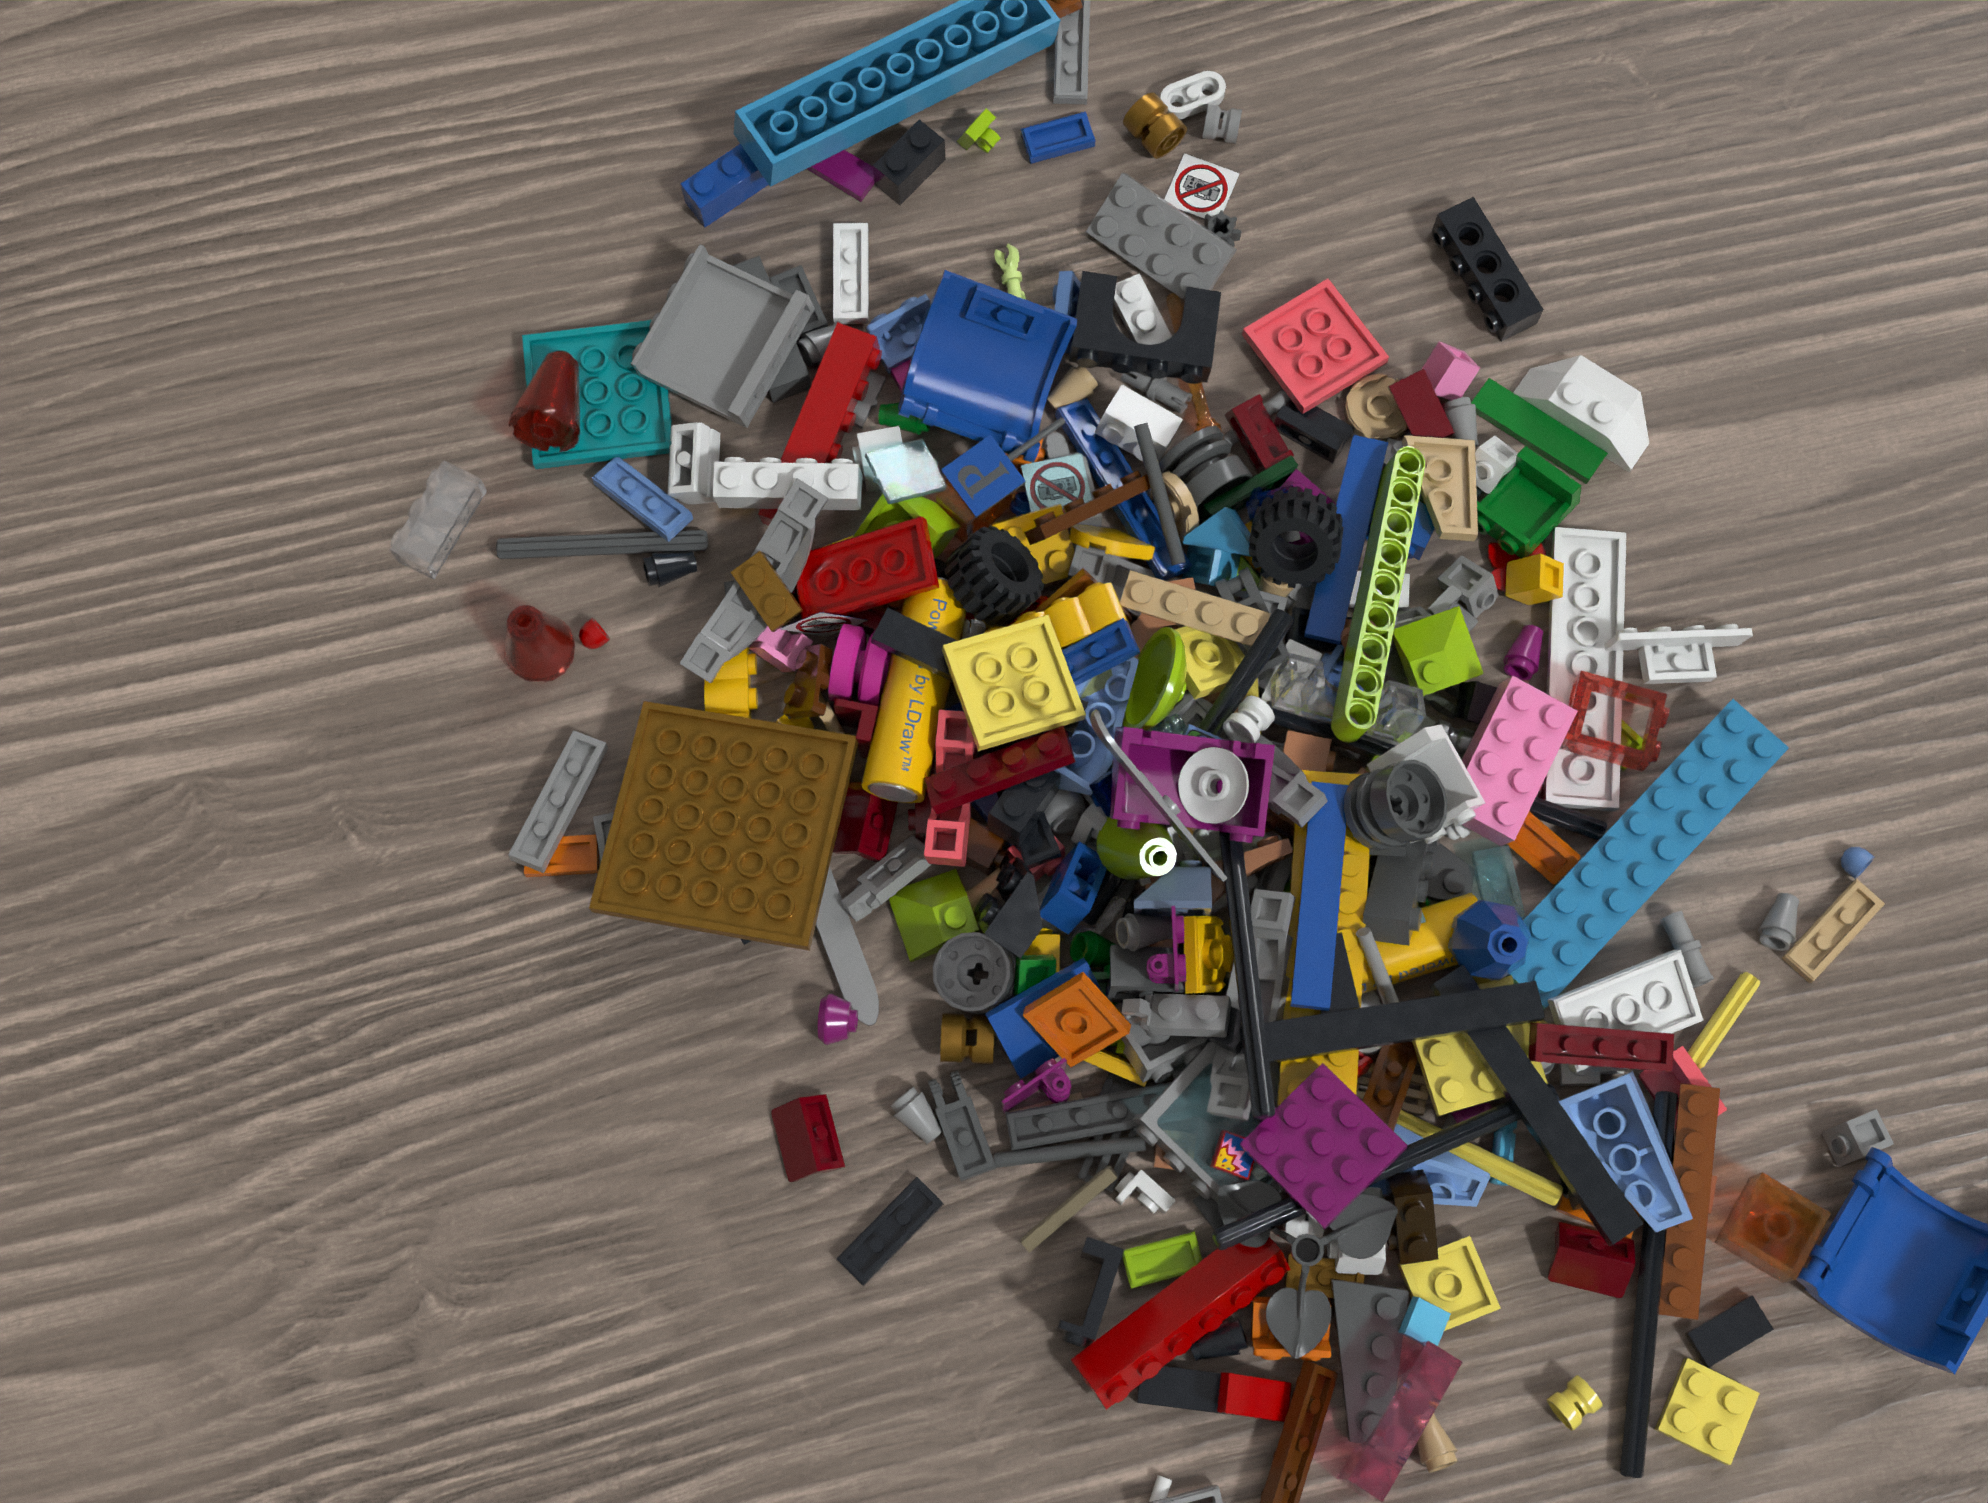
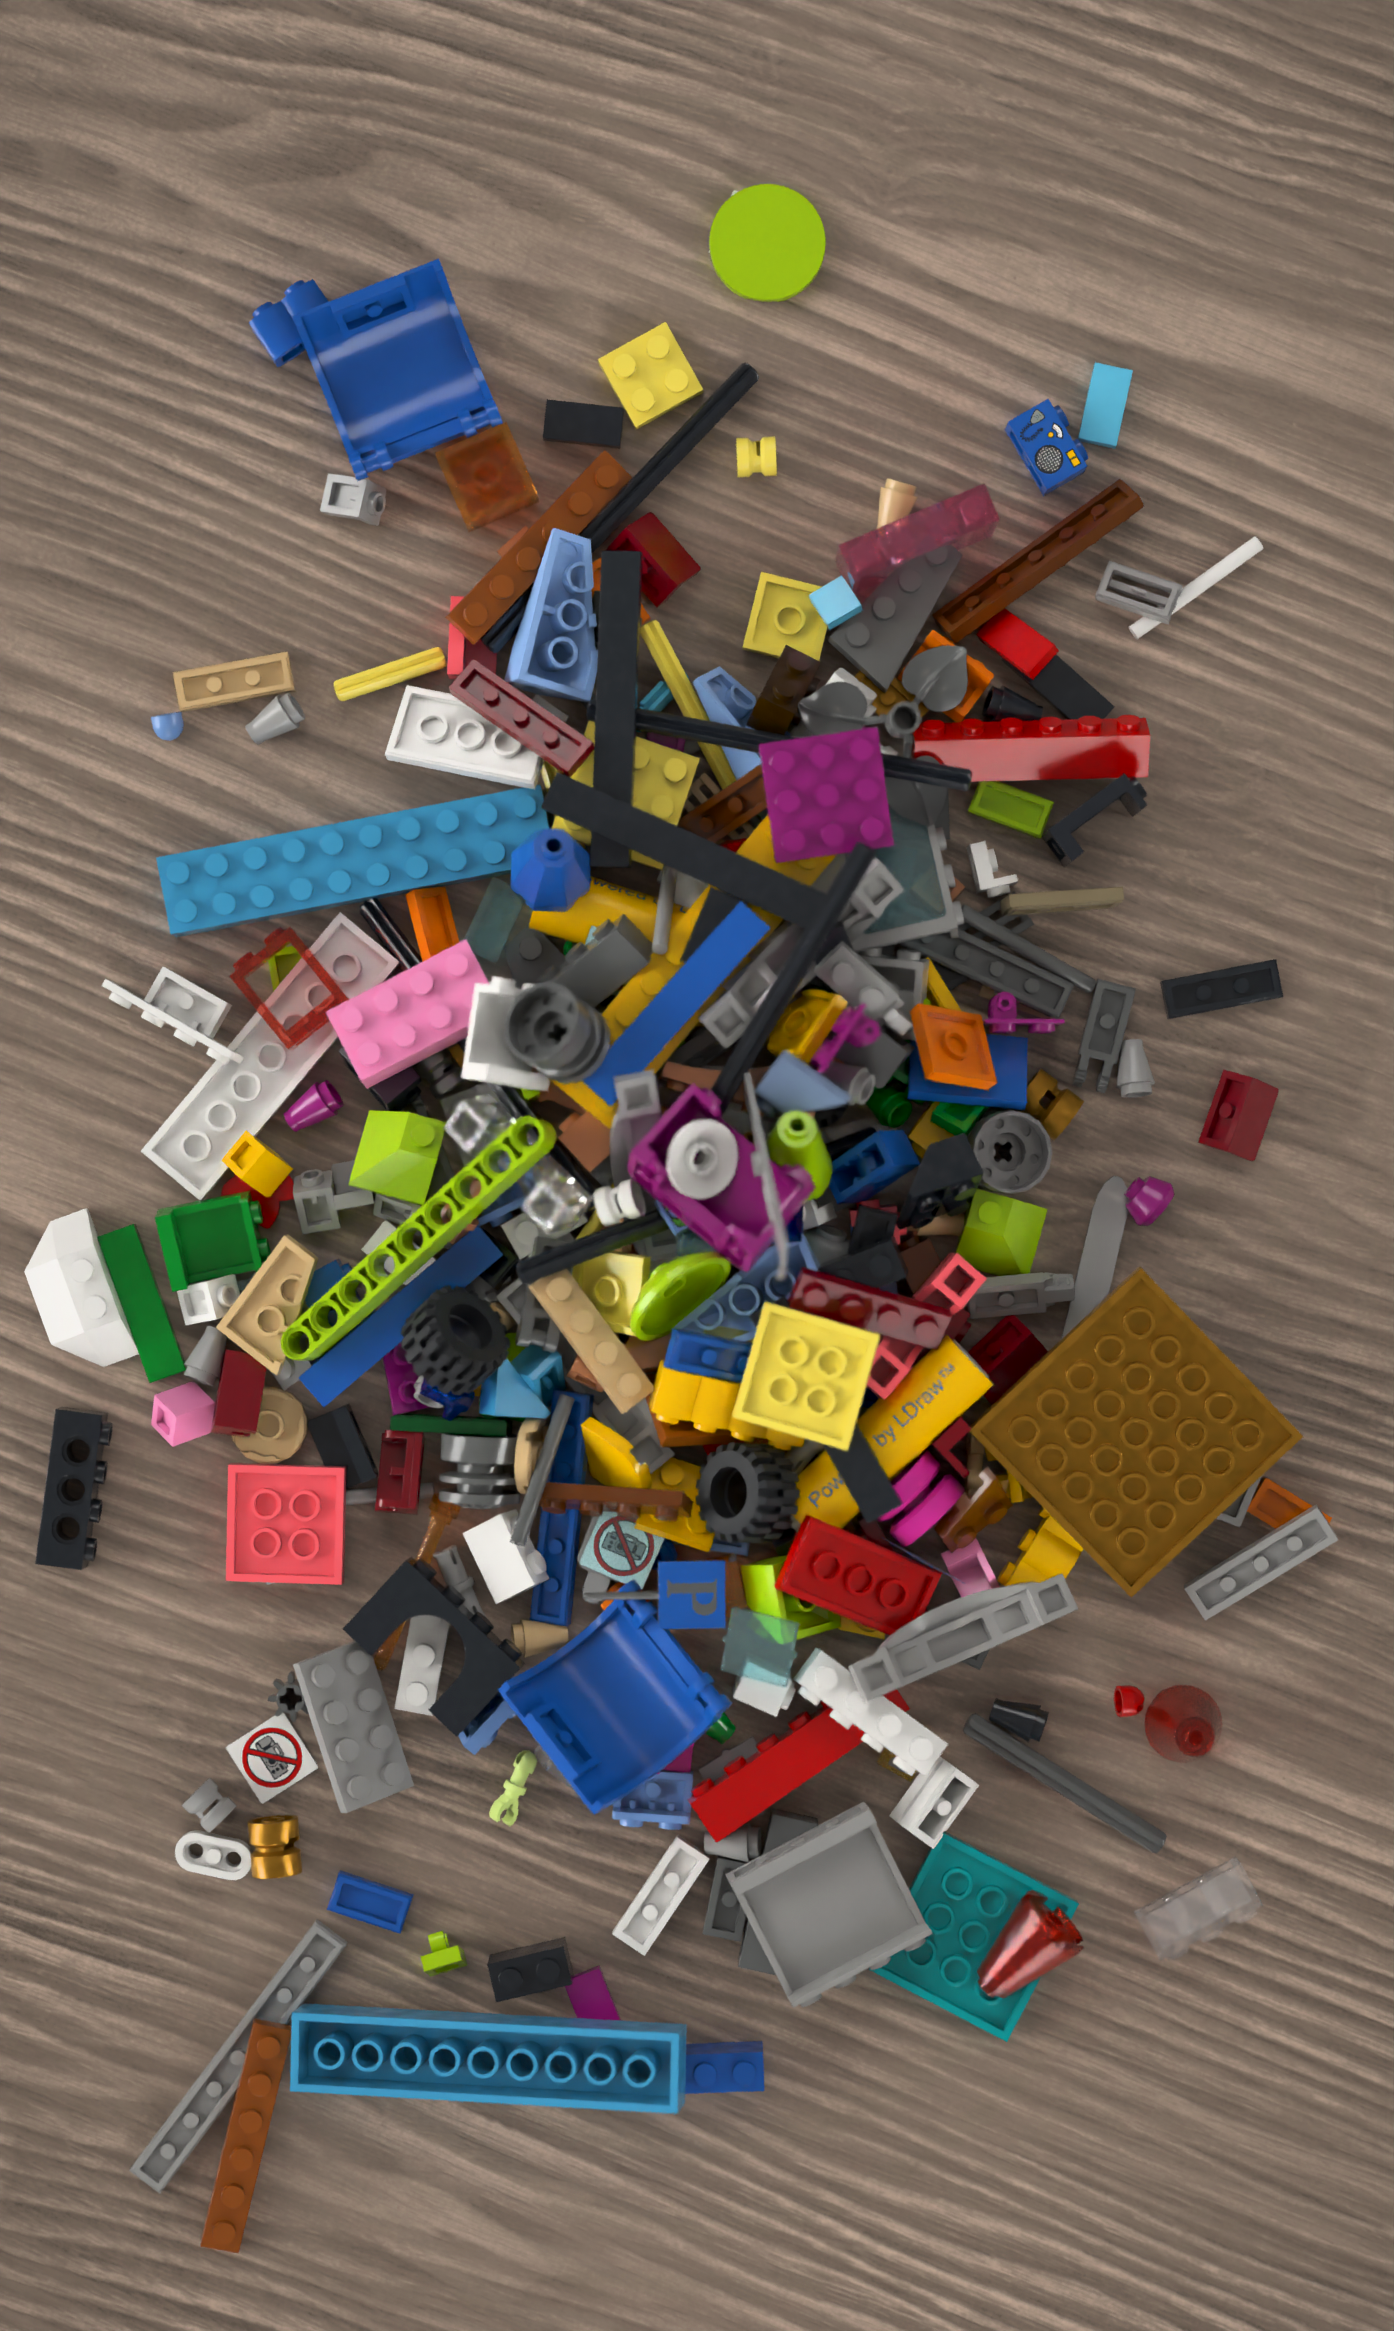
camera: 150 degrees left, 15 degrees up
(642, 498) = (1000, 1801): medium blue tile -> none
(766, 591) = (956, 1622): pearl gold plate -> none
(1230, 1156) = (906, 845): tile -> none
(1683, 940) = (374, 752): light grey pin -> none

